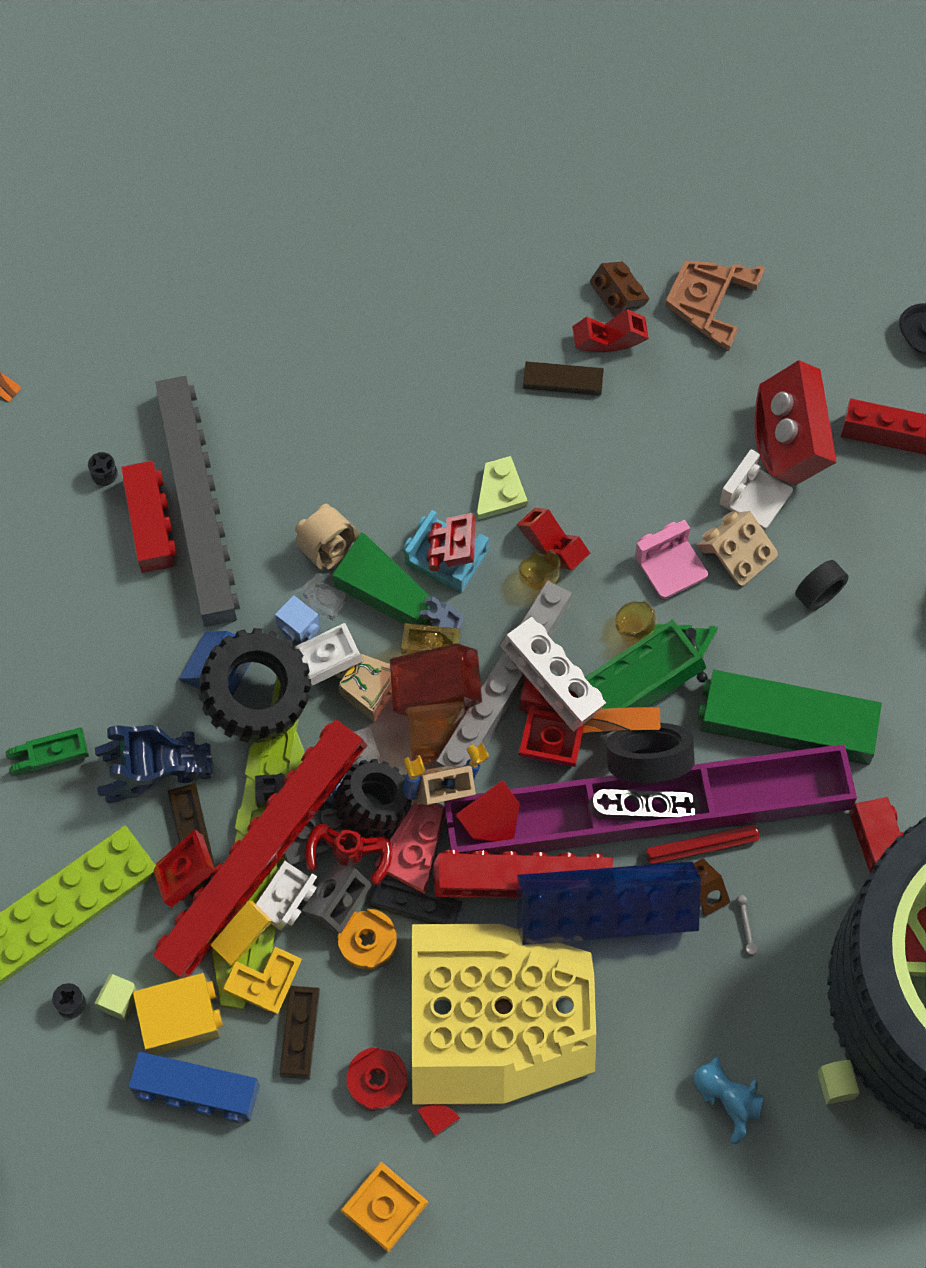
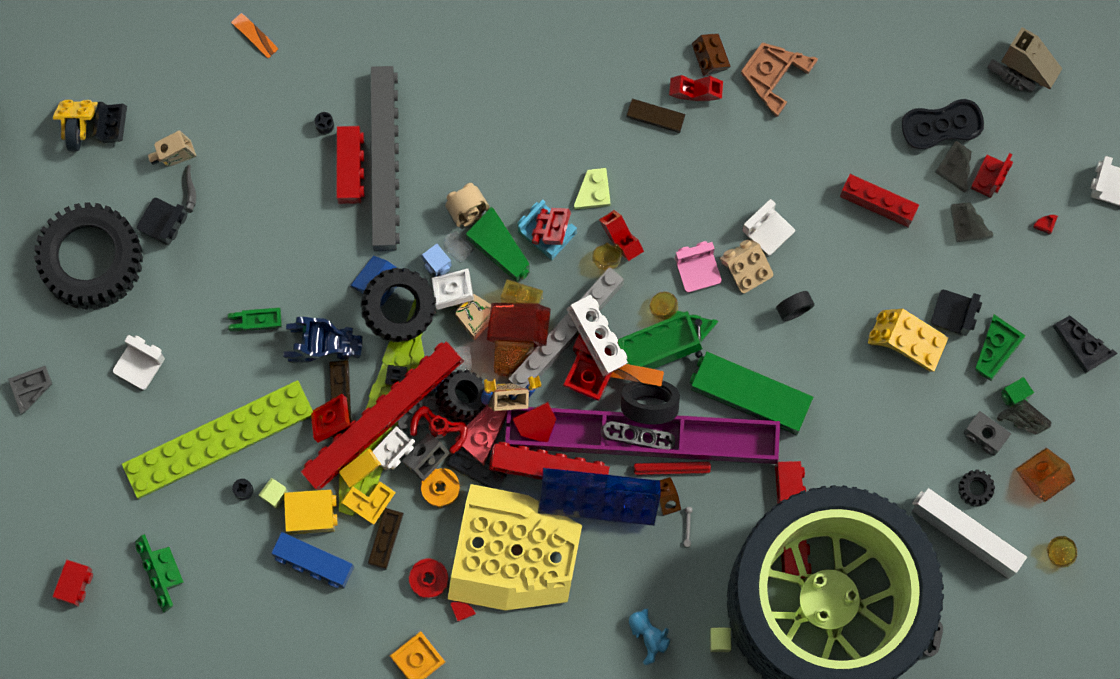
camera: 10 degrees right, 10 degrees up
(442, 614) = (534, 277): sand blue plate -> none
(794, 424) = (805, 186): red piece -> none

